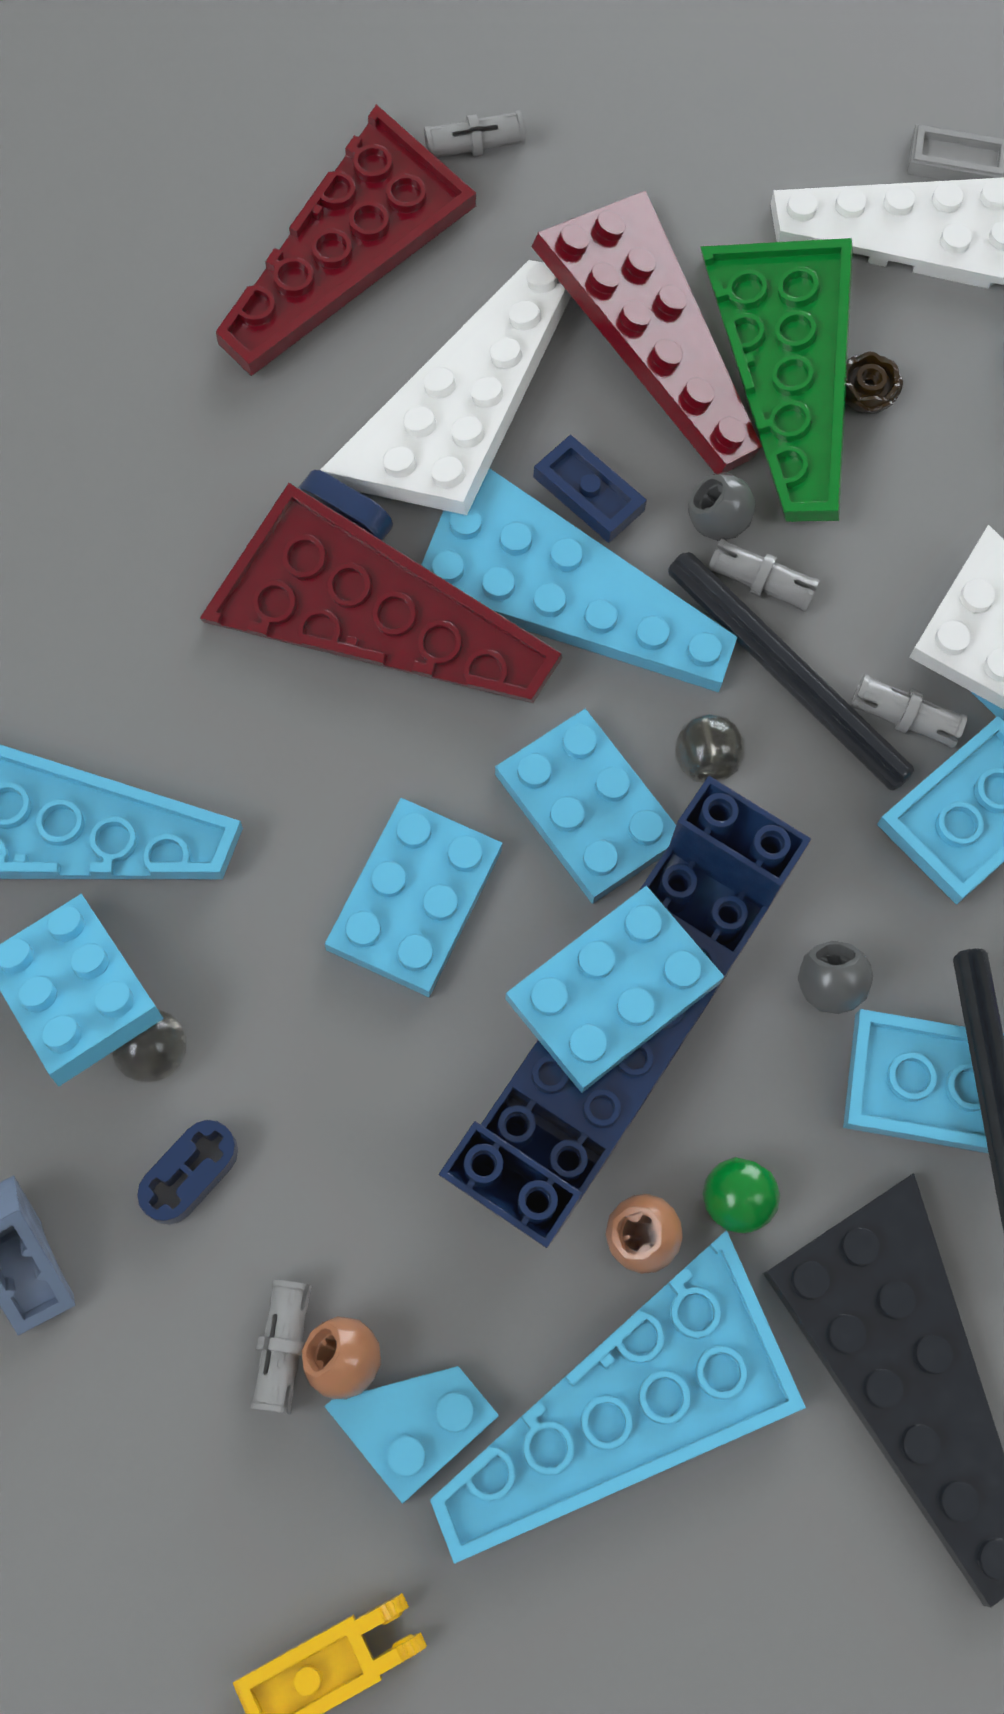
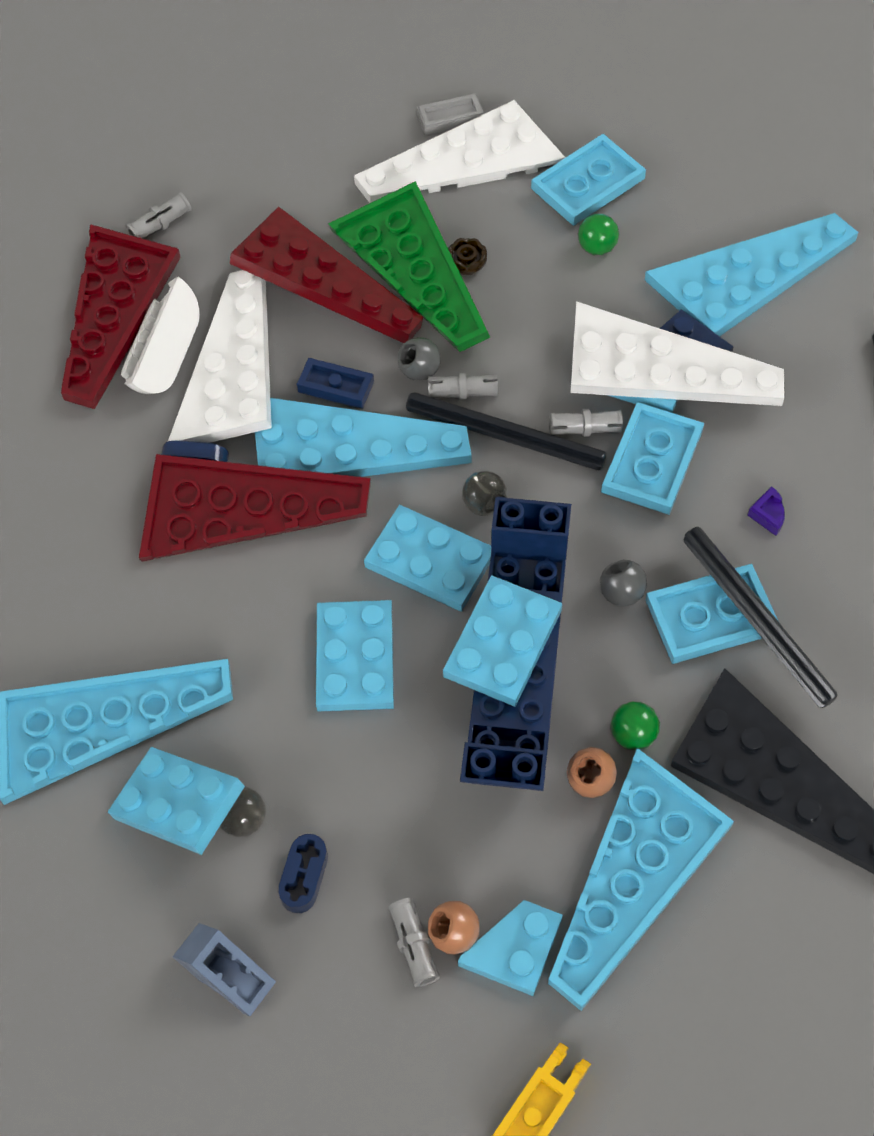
camera: 20 degrees left, 10 degrees down
(387, 319) = (162, 340): none -> white brick

